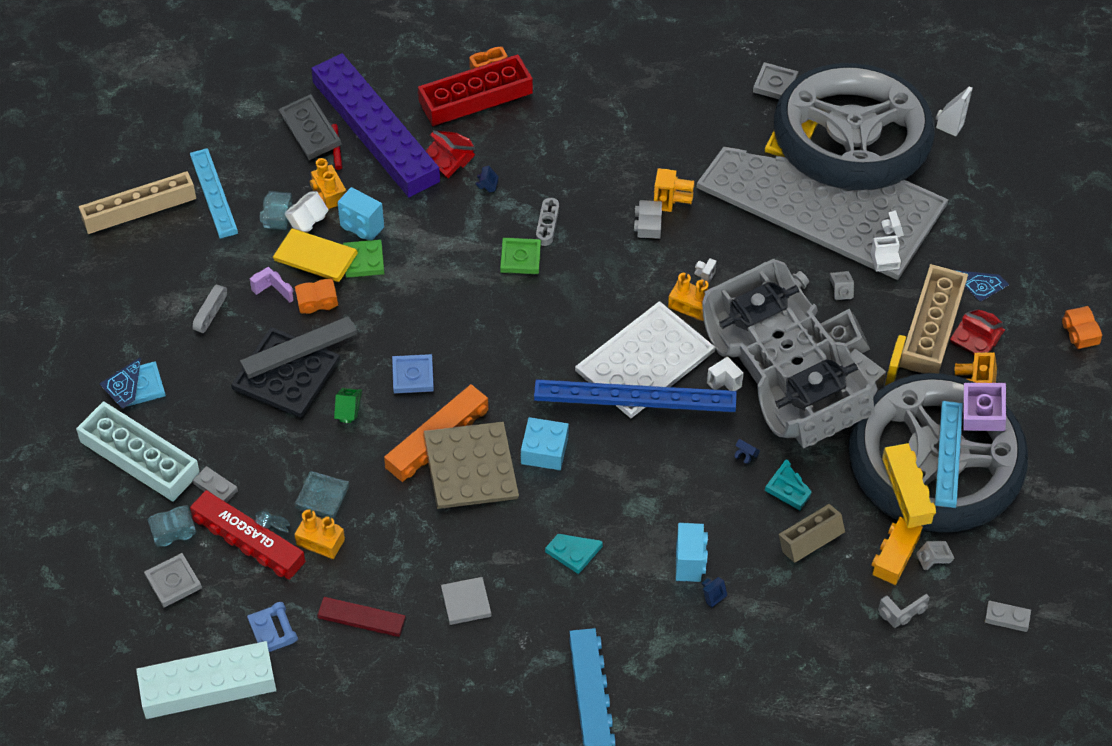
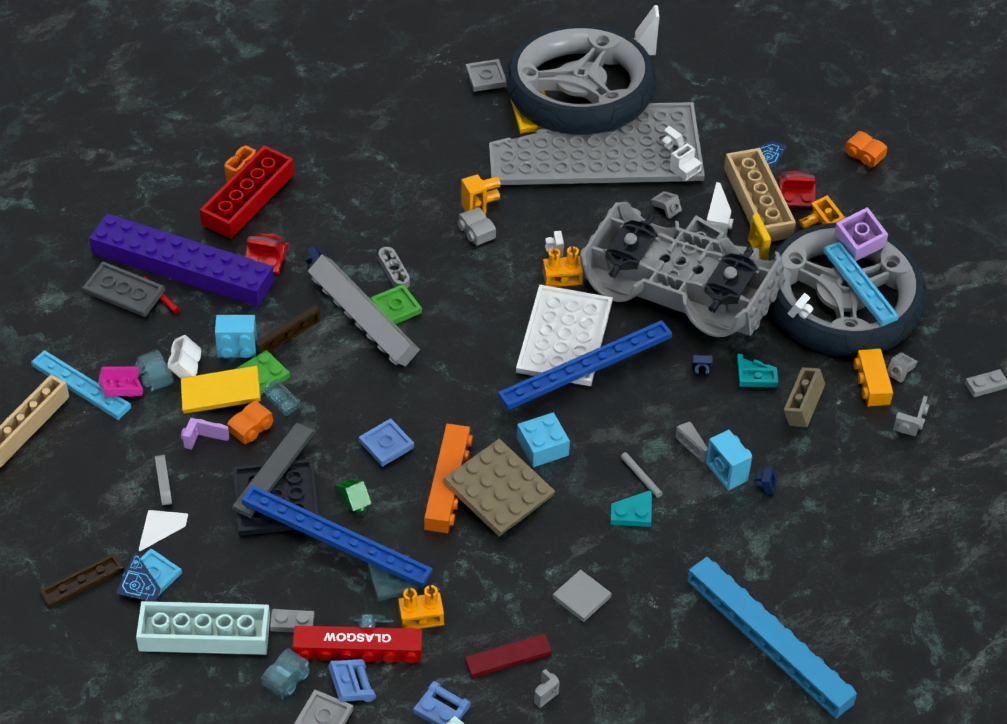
camera: 35 degrees left, 5 degrees down
(84, 358) = (81, 580): none -> dark brown tile
(180, 346) = (160, 525): none -> white sticker
(210, 560) = (346, 681): none -> medium blue plate
(240, 206) = (120, 381): none -> dark pink bracket
(299, 434) = (337, 536): none -> blue plate
(327, 183) = (183, 323): light orange brick -> none
(359, 288) = (281, 397): none -> clear light blue plate
(365, 665) = (547, 689): none -> light grey bracket
(411, 232) = (288, 330): none -> dark brown tile
(486, 246) = (364, 311): none -> light grey brick
(607, 510) = (641, 475): none -> light grey bar
(676, 509) = (689, 437): none -> light grey slope
(725, 374) = (639, 313): white piece -> none
(867, 446) = (801, 307): none -> white tile
(878, 321) = (720, 211): none -> white slope
(908, 485) = (854, 320): yellow brick -> none

